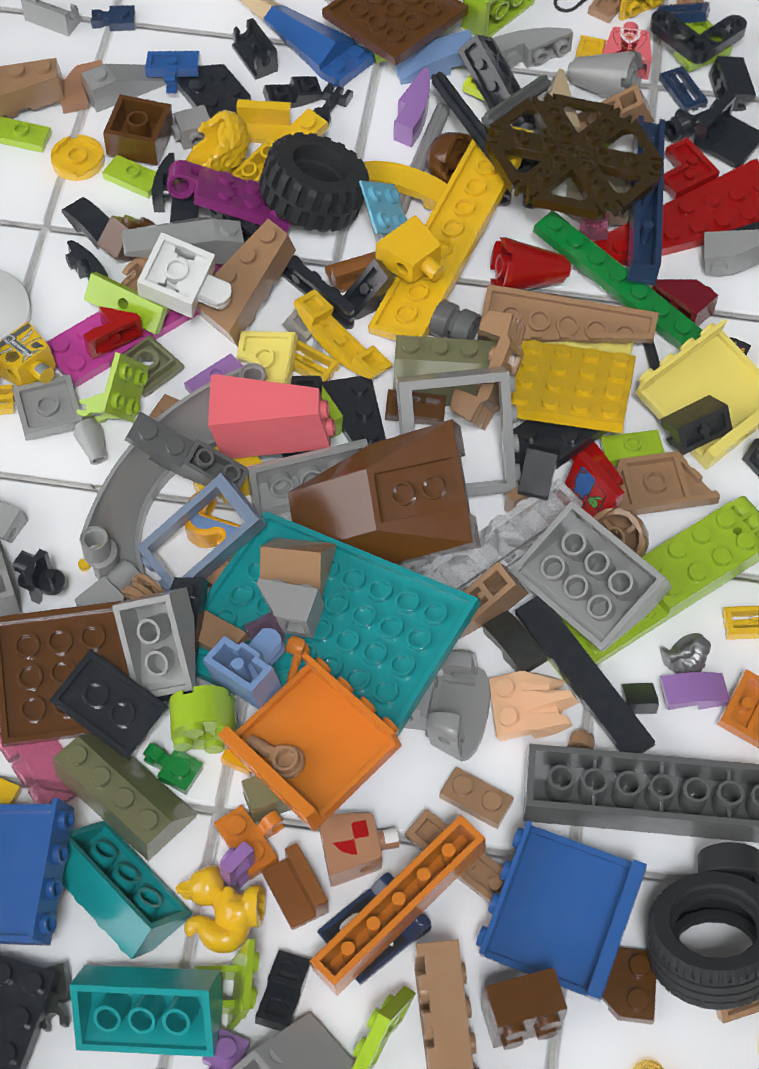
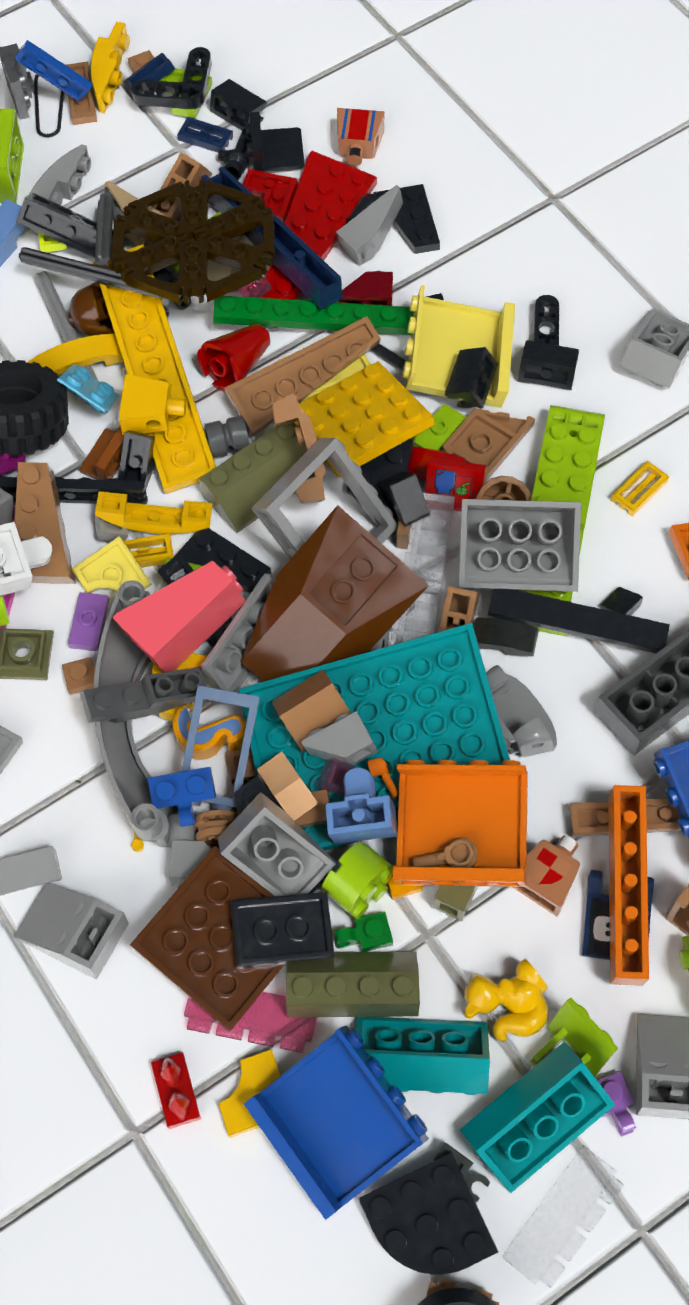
camera: 40 degrees left, 5 degrees up
(37, 575) = (118, 883): black hips -> none
(90, 438) = (43, 747): light grey cone -> none
(121, 393) = (42, 696): lime plate -> none
(142, 545) = (182, 790): none -> blue plate
(217, 606) = (287, 786): none -> light nougat slope
(236, 863) = (491, 959): medium lavender plate -> none
(239, 827) = (471, 936): orange plate -> none
(283, 991) = (605, 1012): black slope -> none
(296, 889) = (539, 938): dark orange panel -> none
(412, 110) = (22, 294): medium lavender slope -> none
(427, 407) = (250, 529): reddish brown plate -> none
(476, 797) = (589, 766): medium nougat plate -> none
(529, 705) = (559, 671): light nougat plate -> none
(581, 739) = (618, 667): medium nougat hinge -> none
(590, 46) = (105, 151): yellow tile -> none
(606, 72) = (142, 161): light grey cone -> none
(631, 39) = (139, 133): coral torso -> none
(690, 658) = (631, 551): flat silver piece -> none
(693, 689) = (651, 569): medium lavender slope -> none

